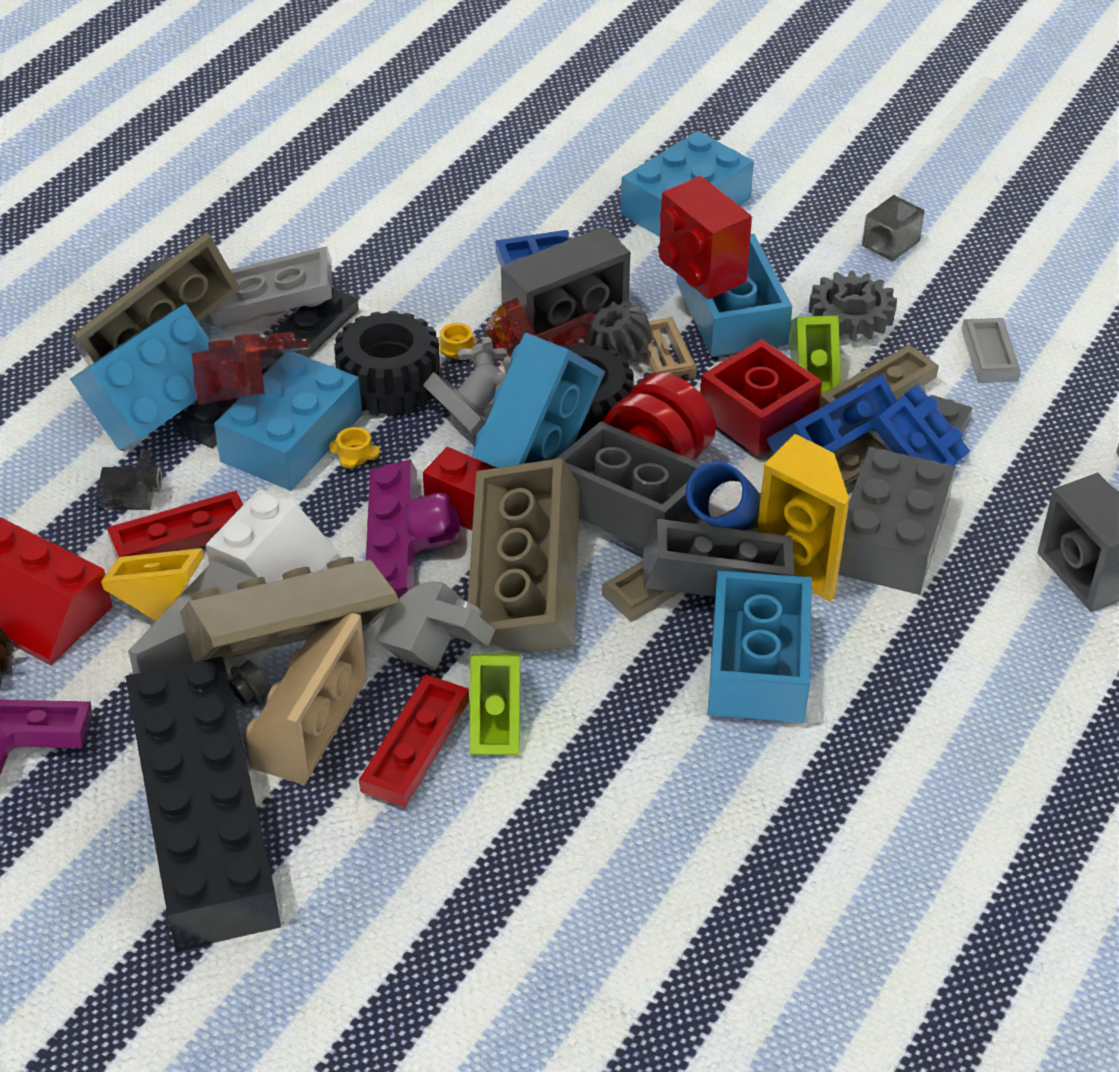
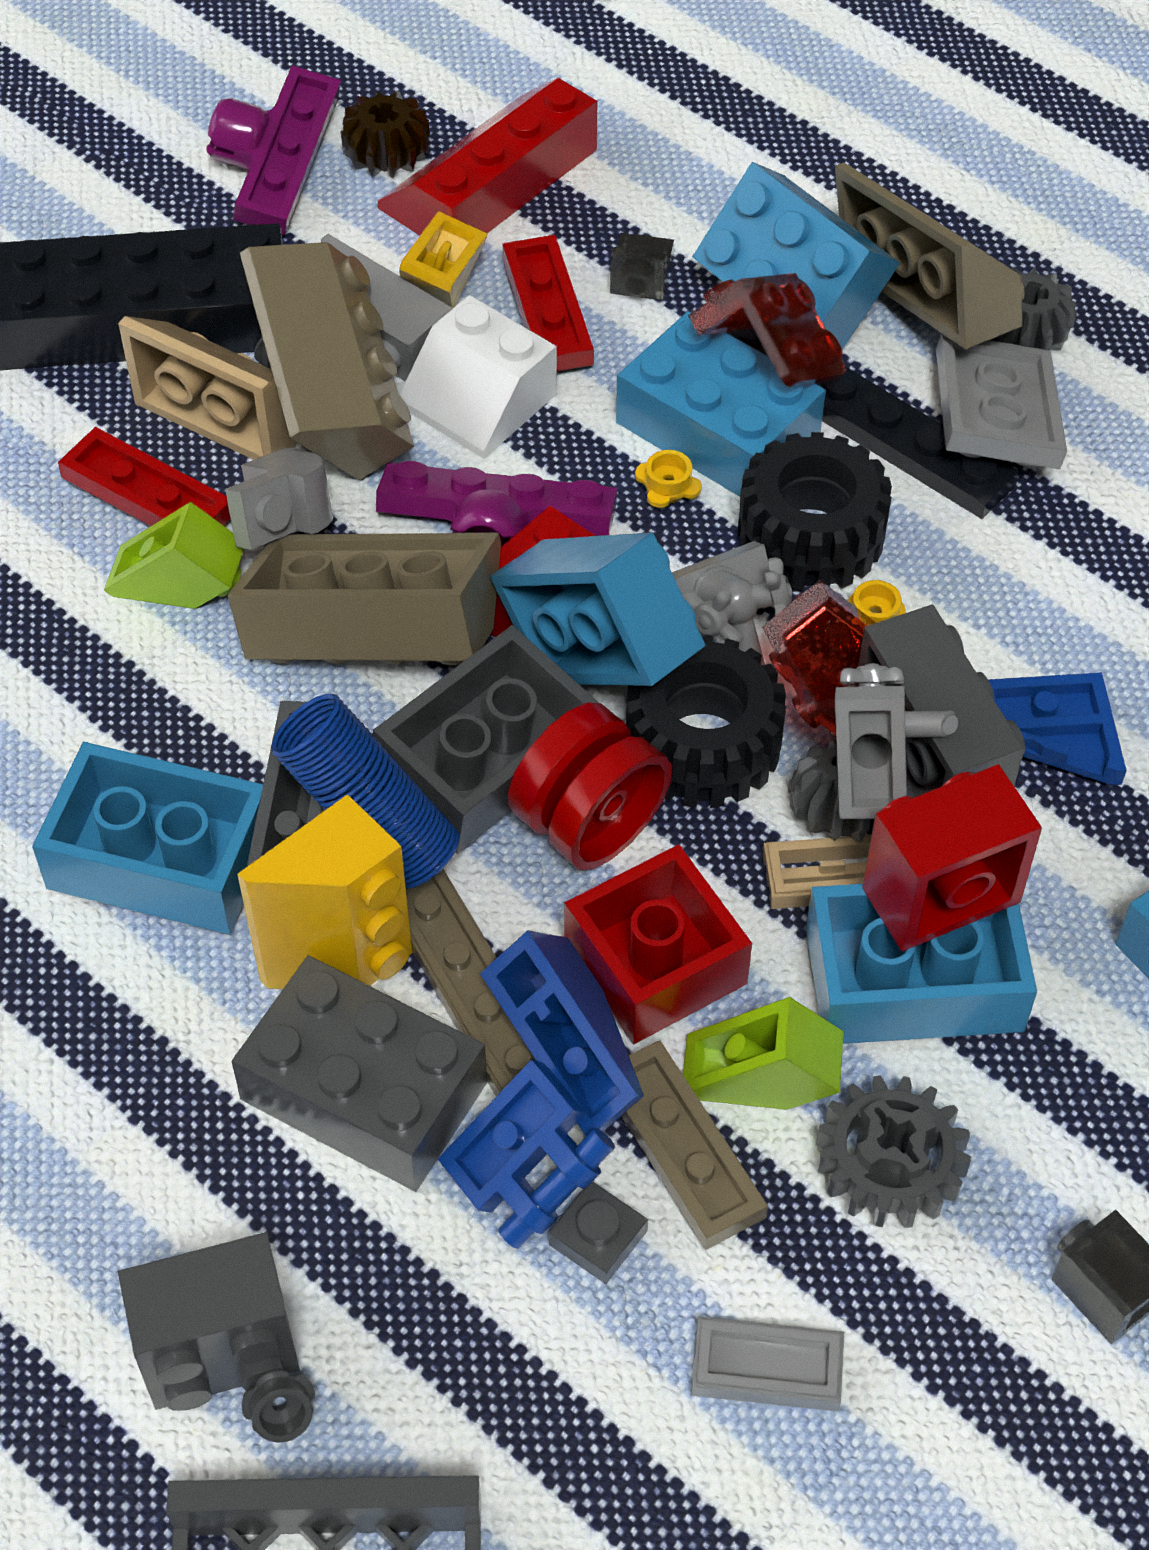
camera: 100 degrees right, 10 degrees up
(610, 279) = (873, 738): none -> light grey piece

